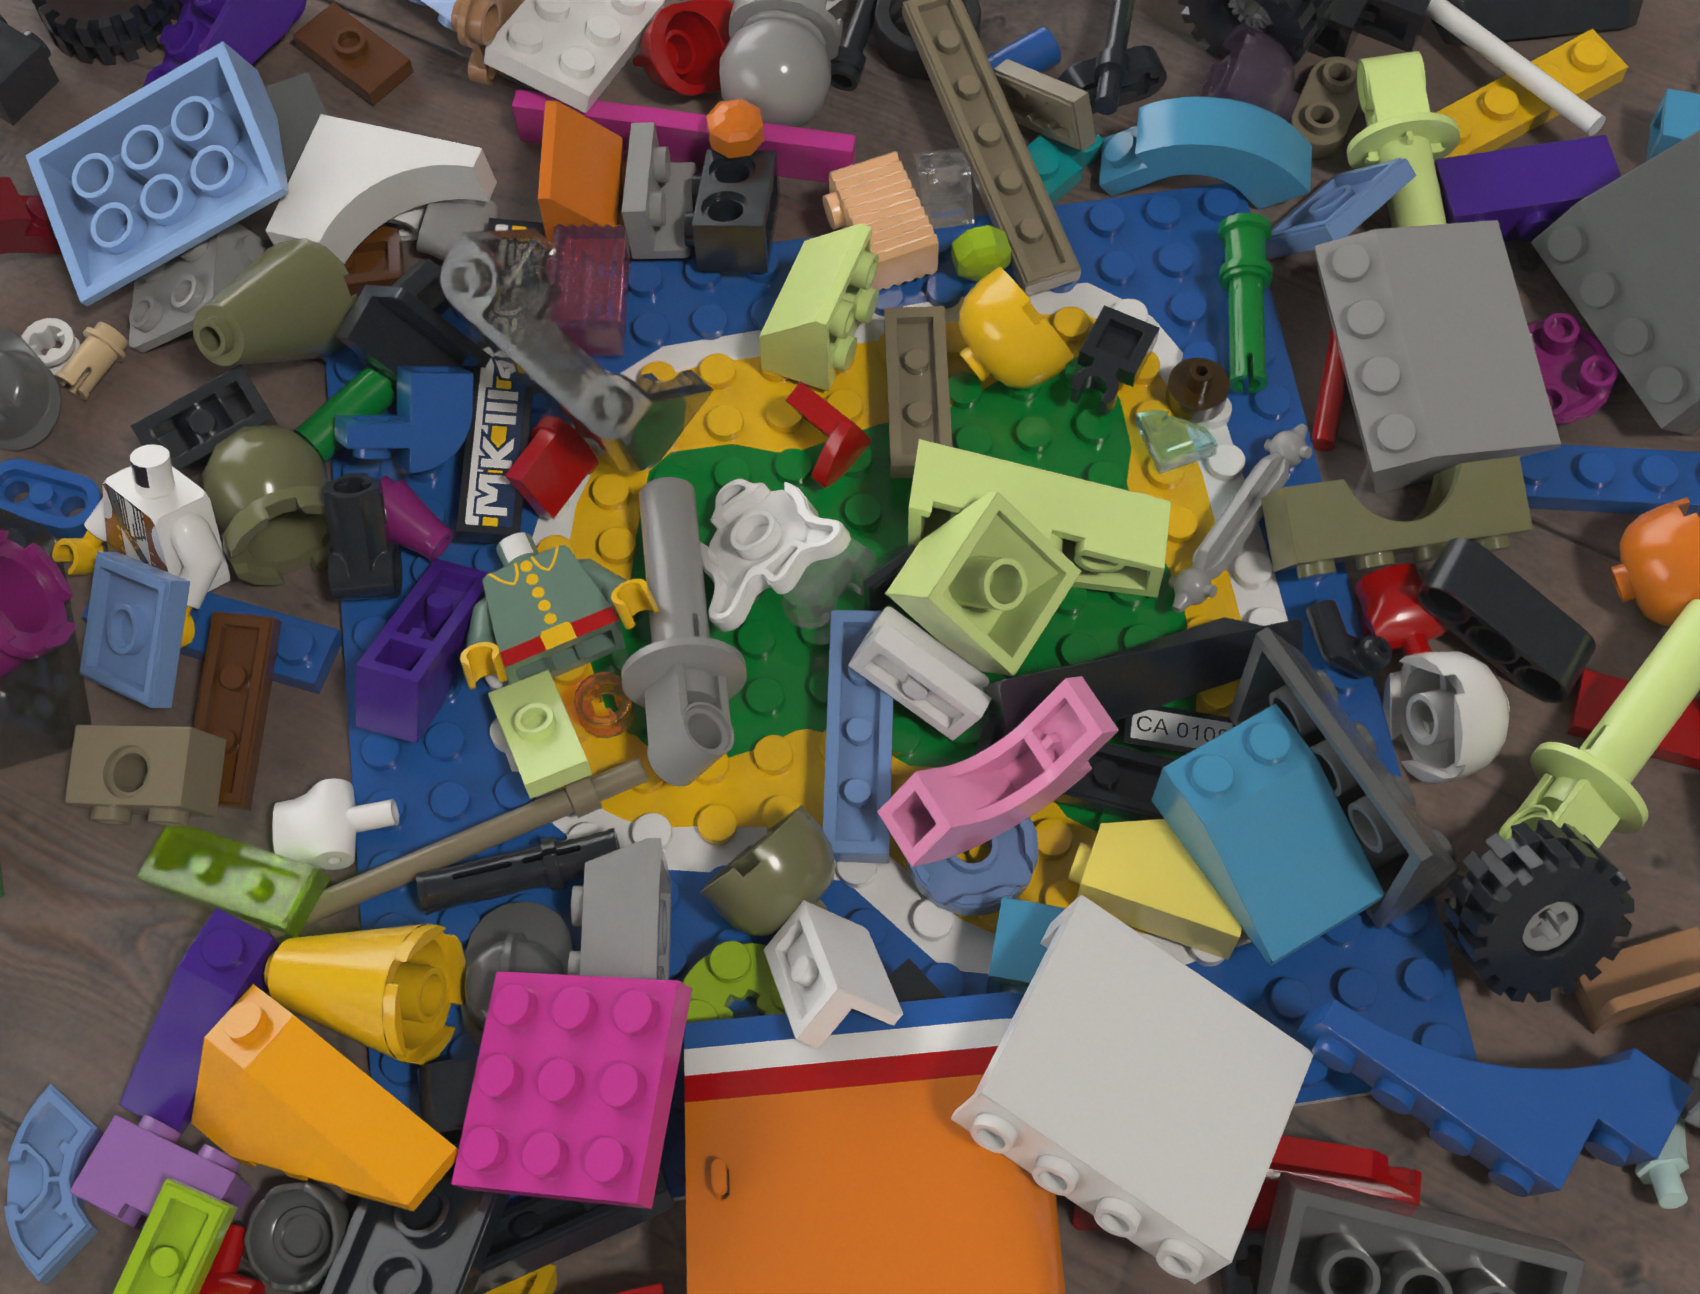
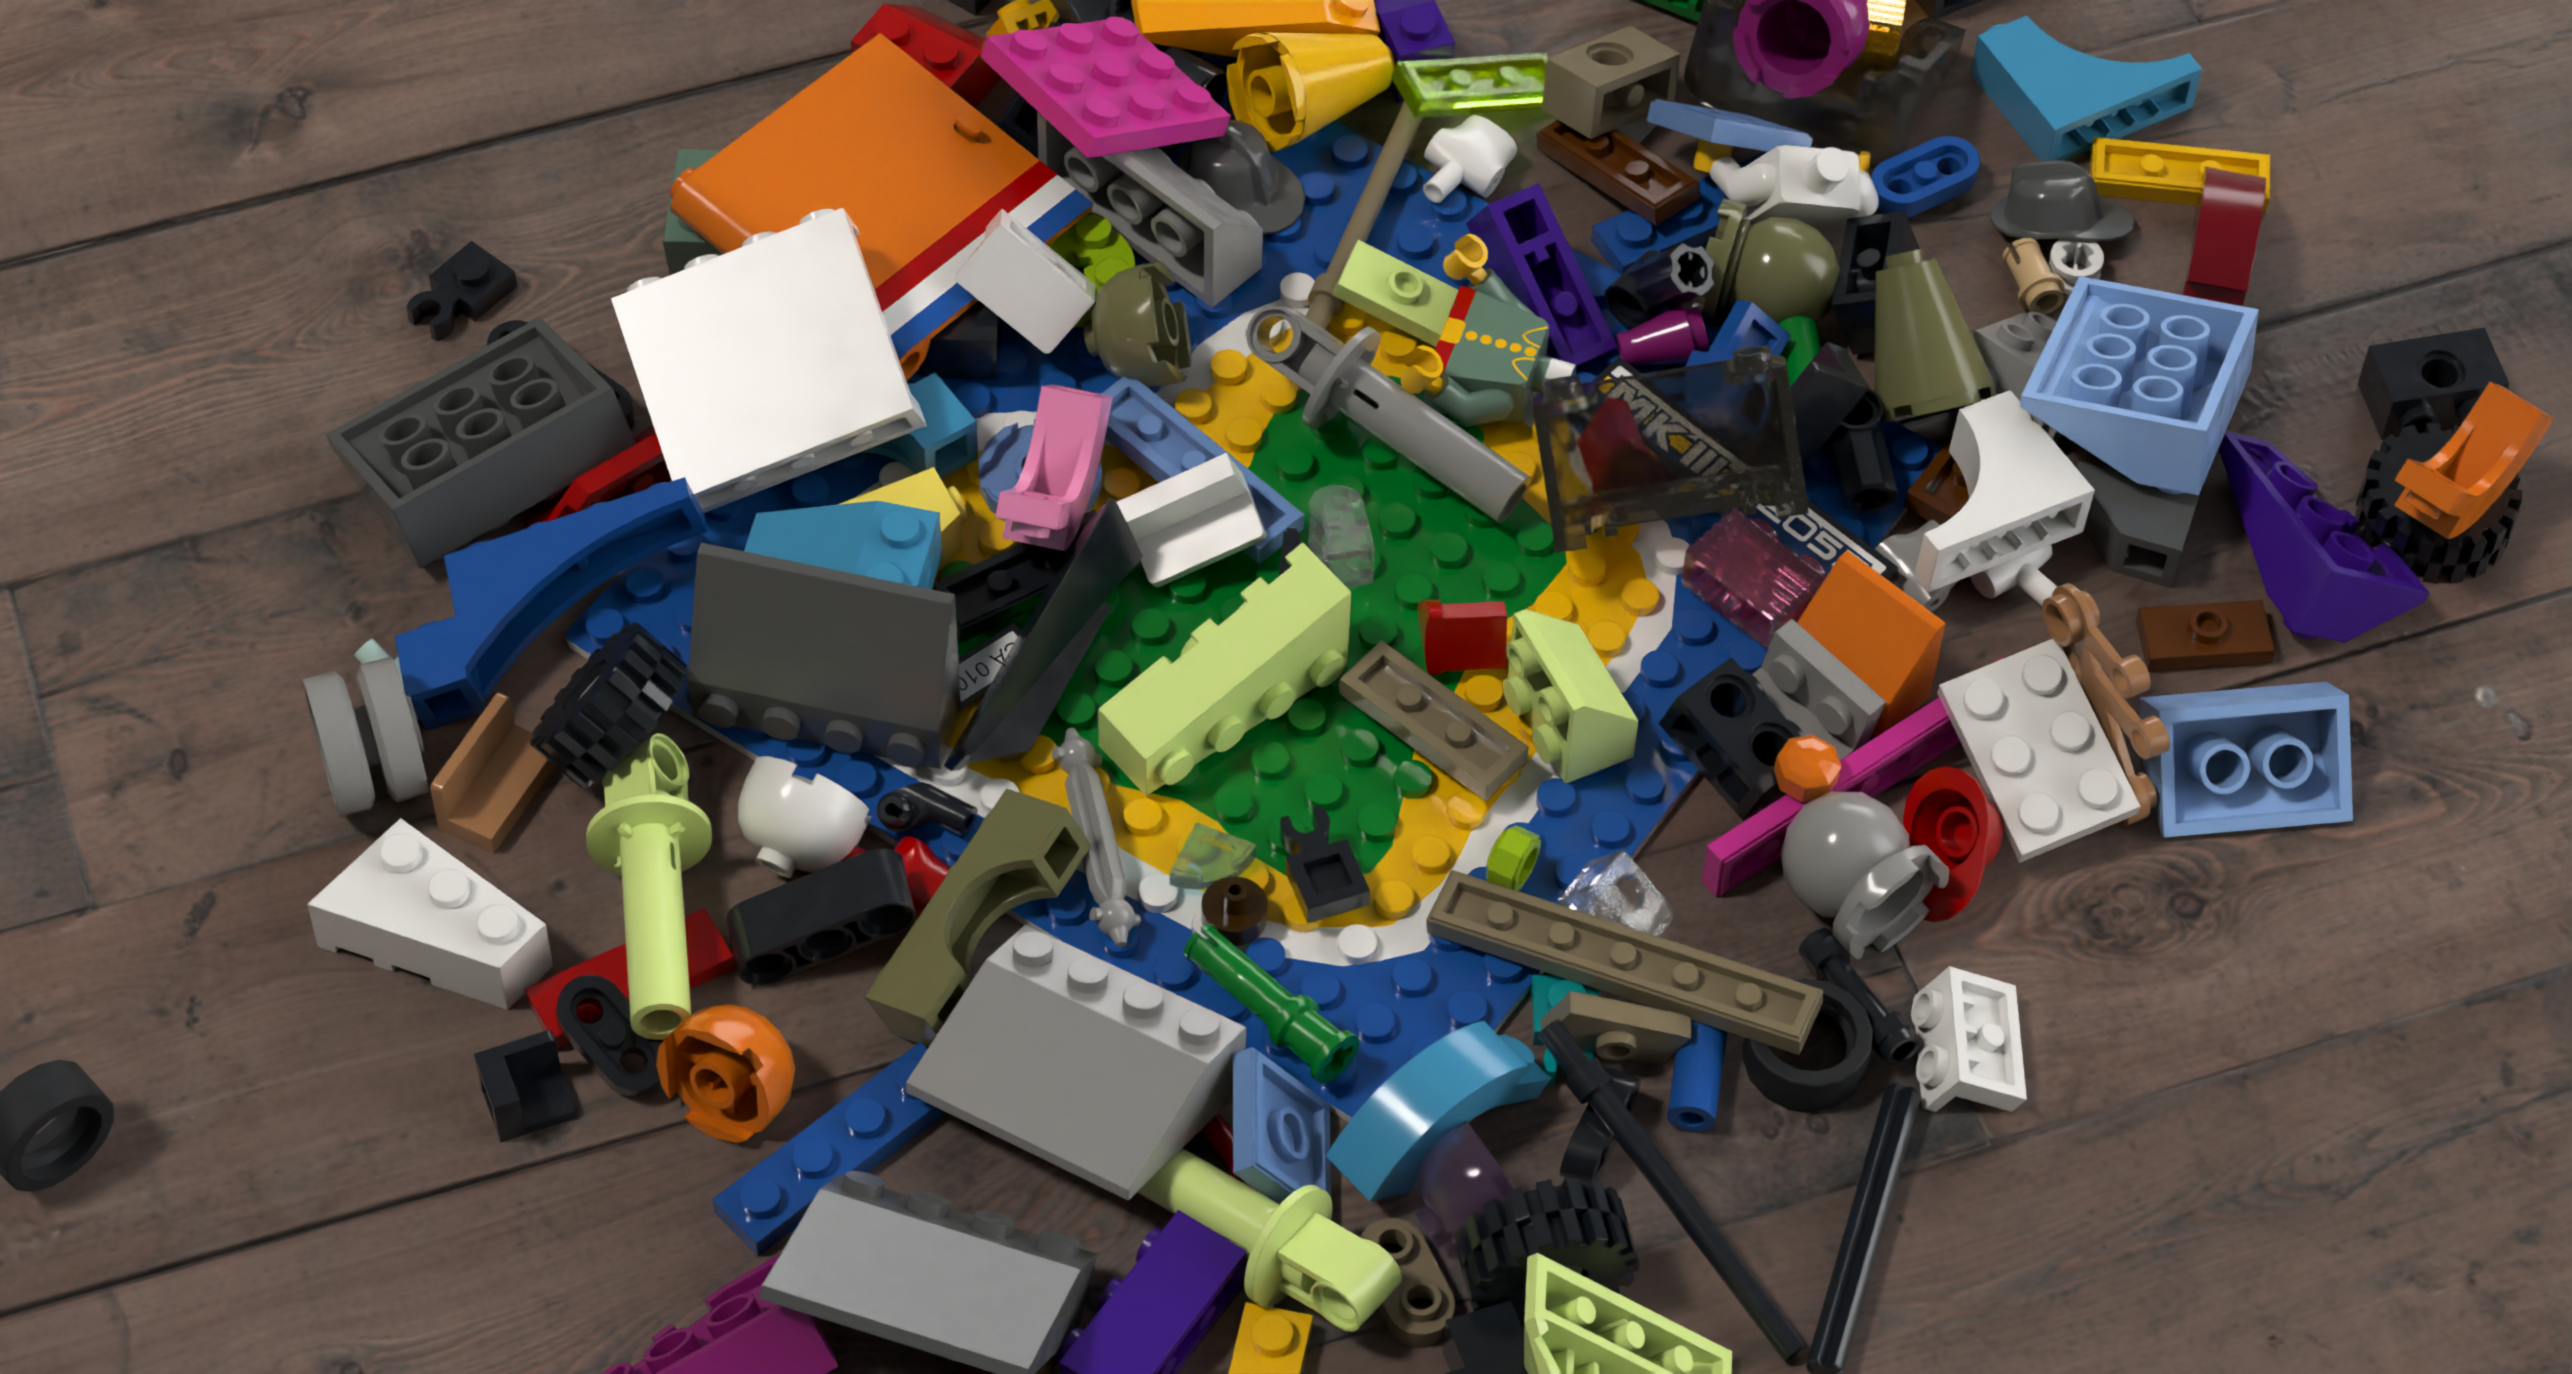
camera: 130 degrees right, 10 degrees down
(513, 872) = (1296, 238): black pin -> none
(593, 688) = (1392, 341): clear orange bush -> none
(763, 544) = (1399, 506): white tile -> none
(884, 199) = (1610, 809): light nougat brick -> none
(985, 584) = (1198, 565): yellowish green slope -> none
(1009, 335) = (1407, 805): yellow cylinder -> none
(1573, 367) = (982, 1175): magenta dish -> none

